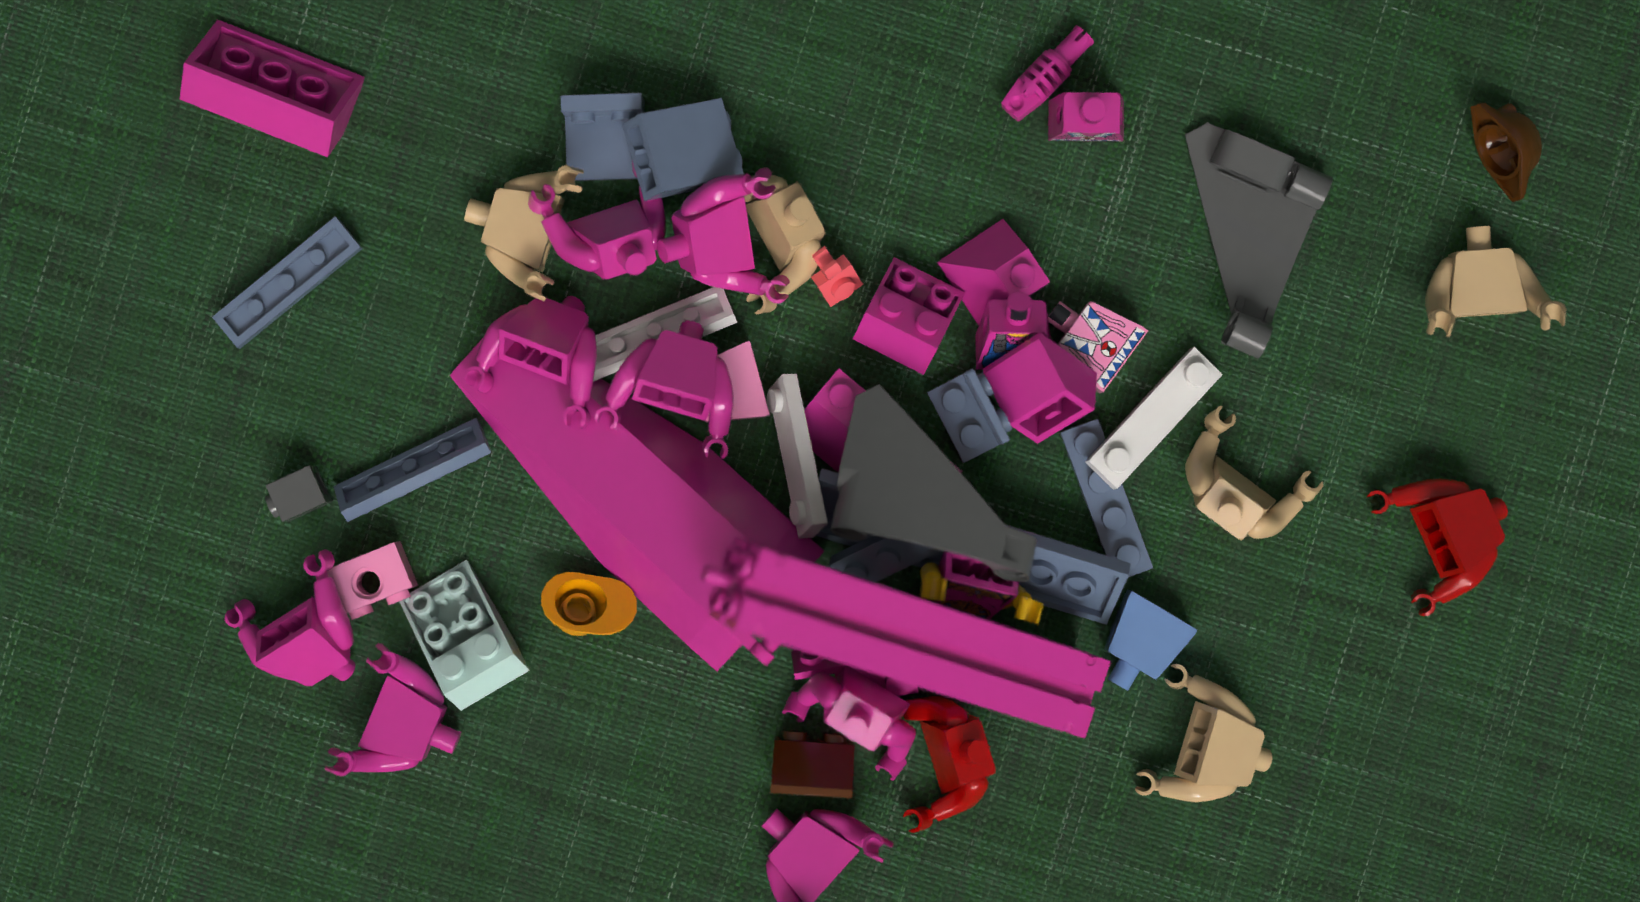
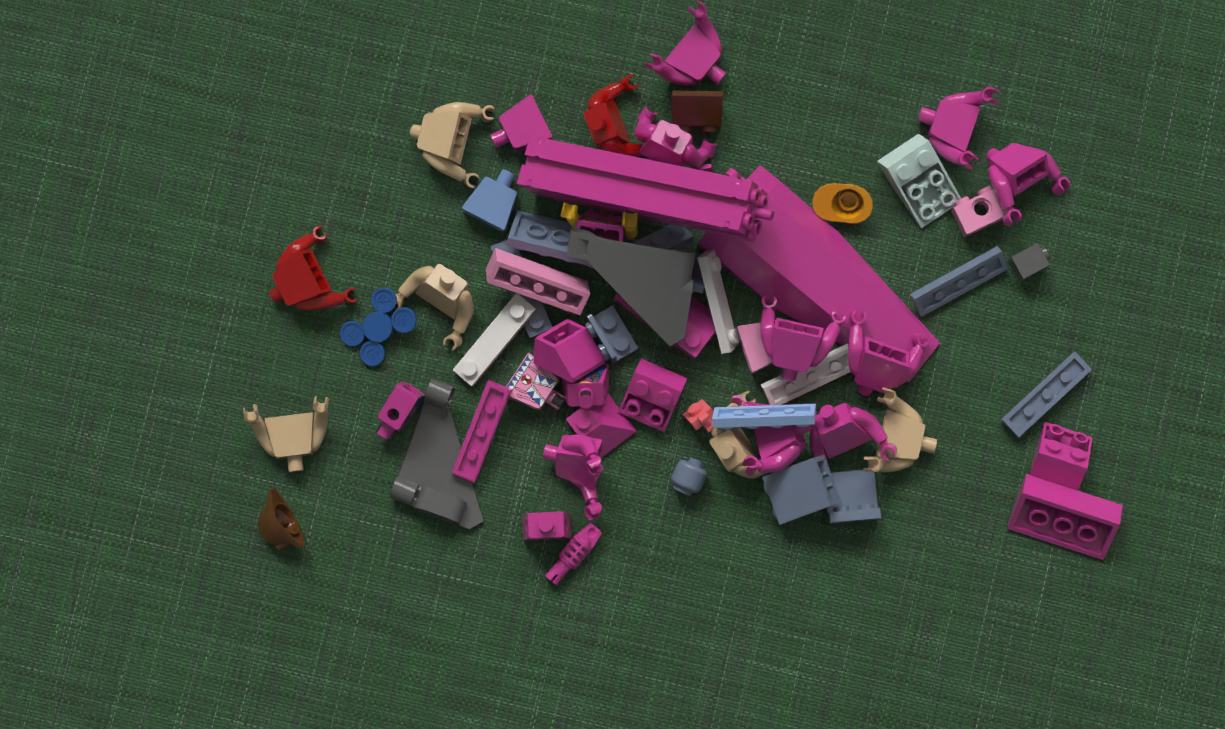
camera: 175 degrees right, 5 degrees down
(269, 183) = (1061, 456): none -> dark pink slope
(735, 262) = (770, 415): none -> light blue plate
(859, 183) = (689, 476): none -> sand blue head
(1028, 212) = (579, 462): none -> dark pink torso
(1083, 503) = (537, 281): none -> bright pink brick
(1093, 762) = (521, 123): none -> dark pink torso
(1183, 272) = (481, 431): none -> dark pink tile
(1311, 316) = (405, 400): none -> dark pink torso
(1337, 449) = (378, 326): none -> blue piece

